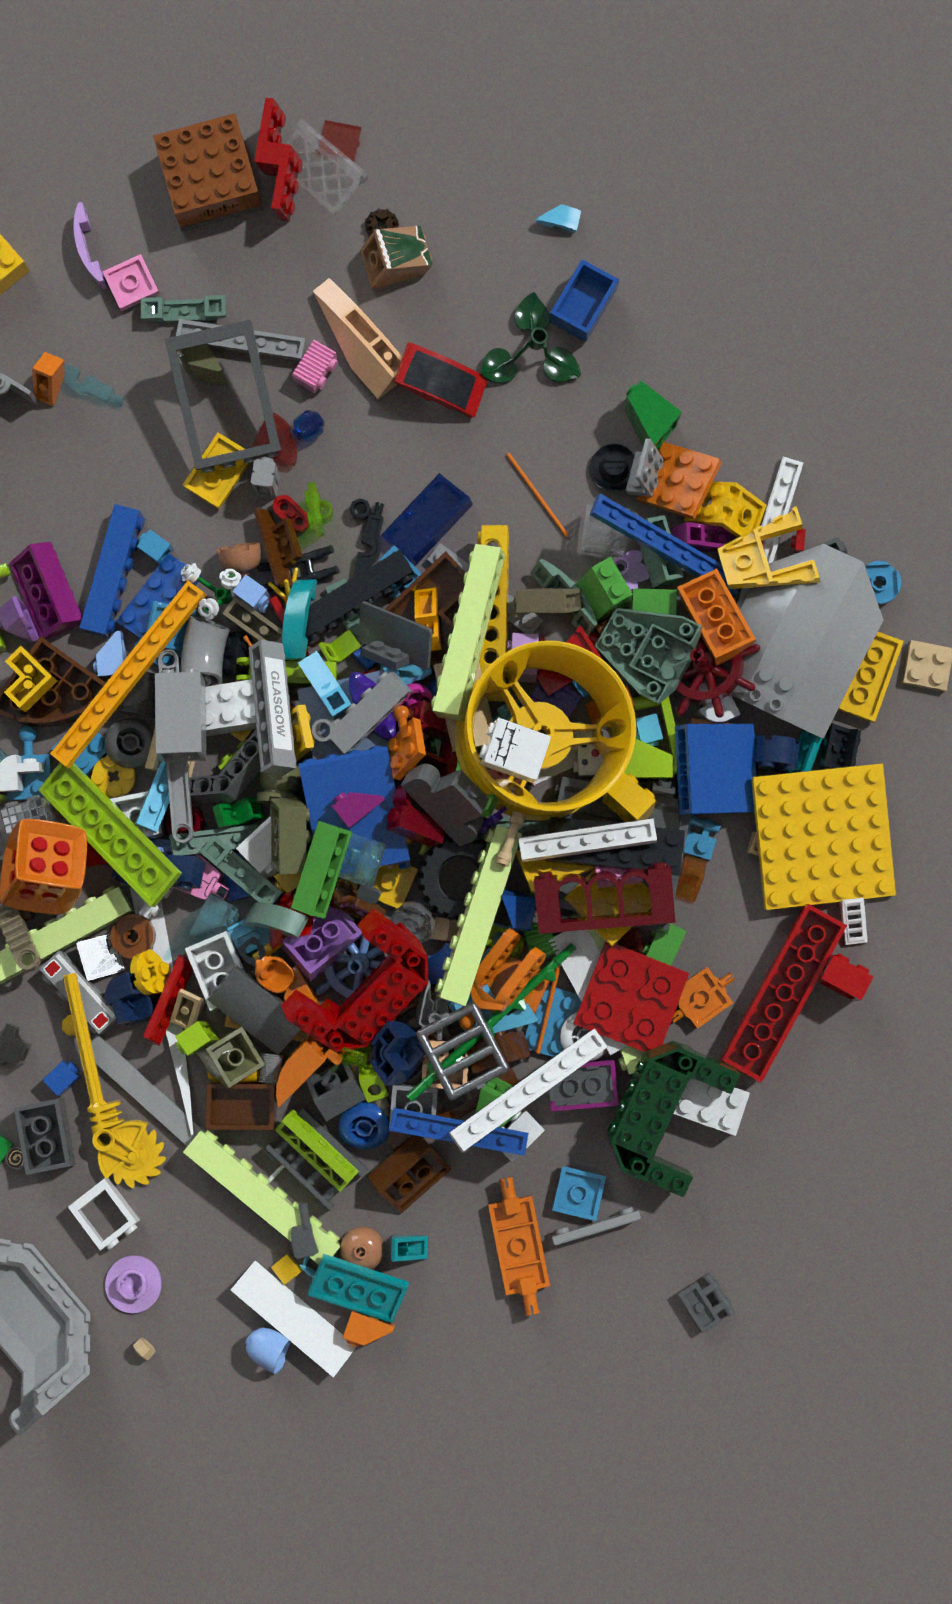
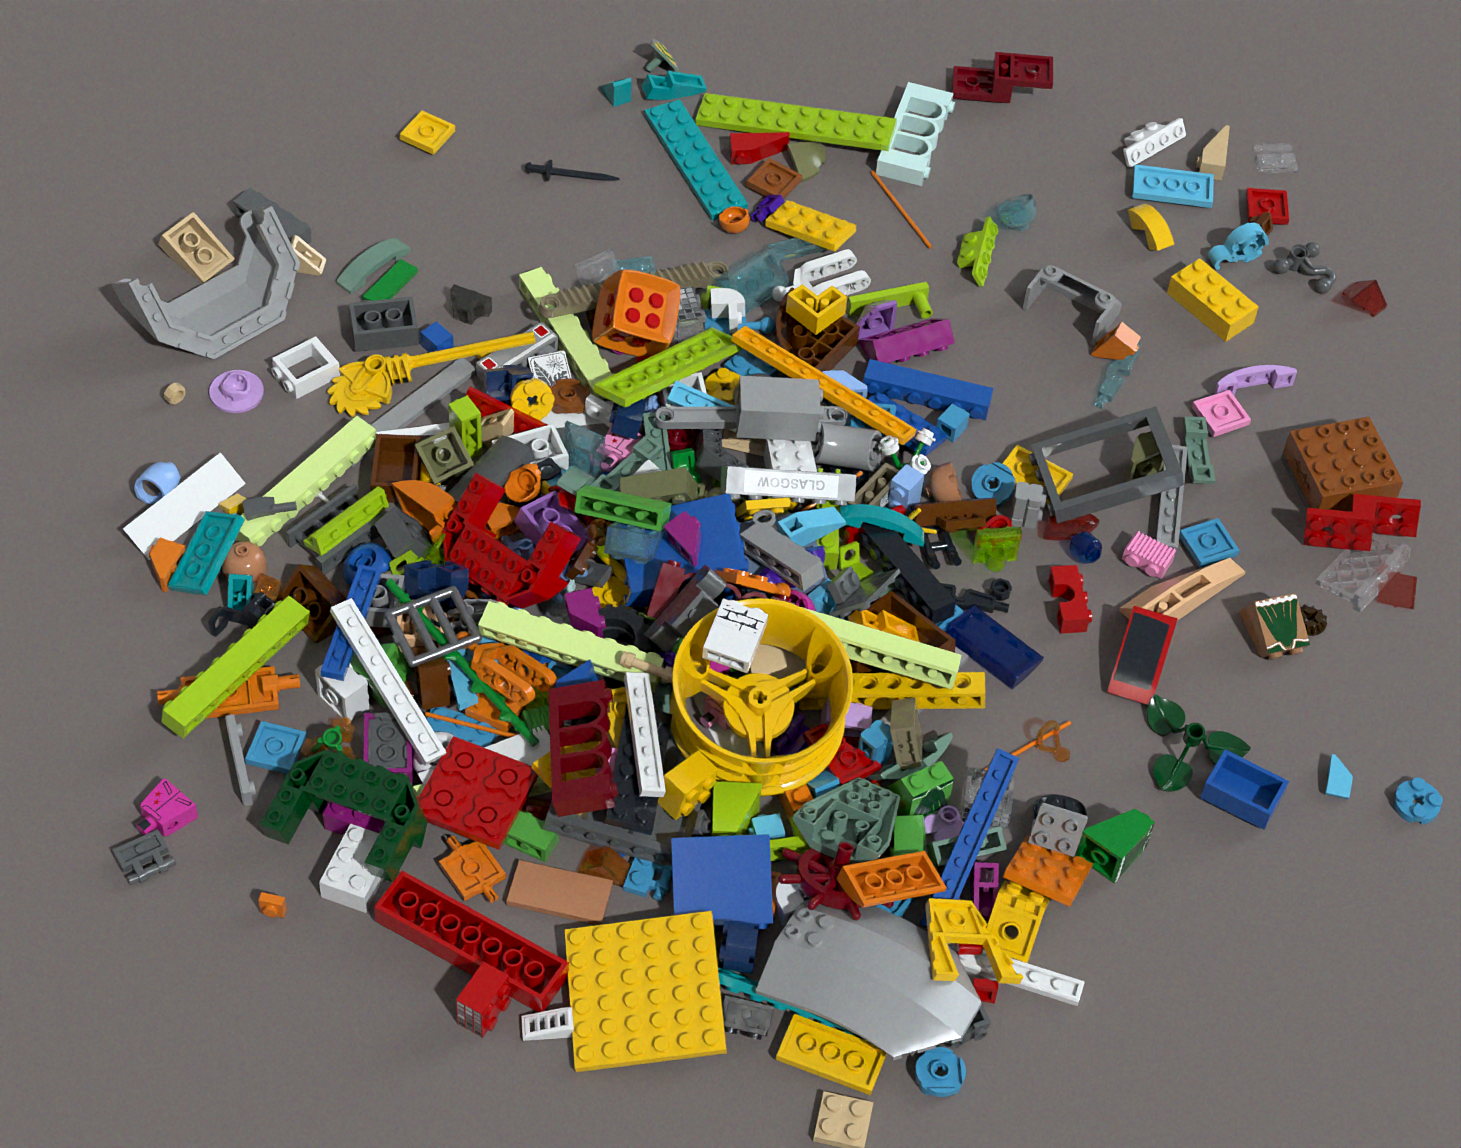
camera: 85 degrees right, 30 degrees down
(223, 512) = (989, 473): none -> dark azure plate
(295, 308) = (1209, 542): none -> dark azure plate
(353, 443) = (1068, 584): none -> red arch
(392, 1222) = (268, 586): none -> clear orange plate
(431, 1232) = (249, 615): none -> black piece
(437, 905) = (583, 611): none -> magenta slope
(501, 1241) = (234, 667): none -> lime brick
(544, 463) = (1061, 754): none -> clear orange piece
(556, 627) = (877, 742): none -> dark azure brick
(579, 163) = (1419, 790): none -> dark azure plate
(584, 1137) = (332, 739): none -> plant
(655, 1290) = (166, 810): none -> dark pink torso
(718, 917) = (559, 892): none -> nougat tile
(752, 1177) = (272, 905): none -> orange plate

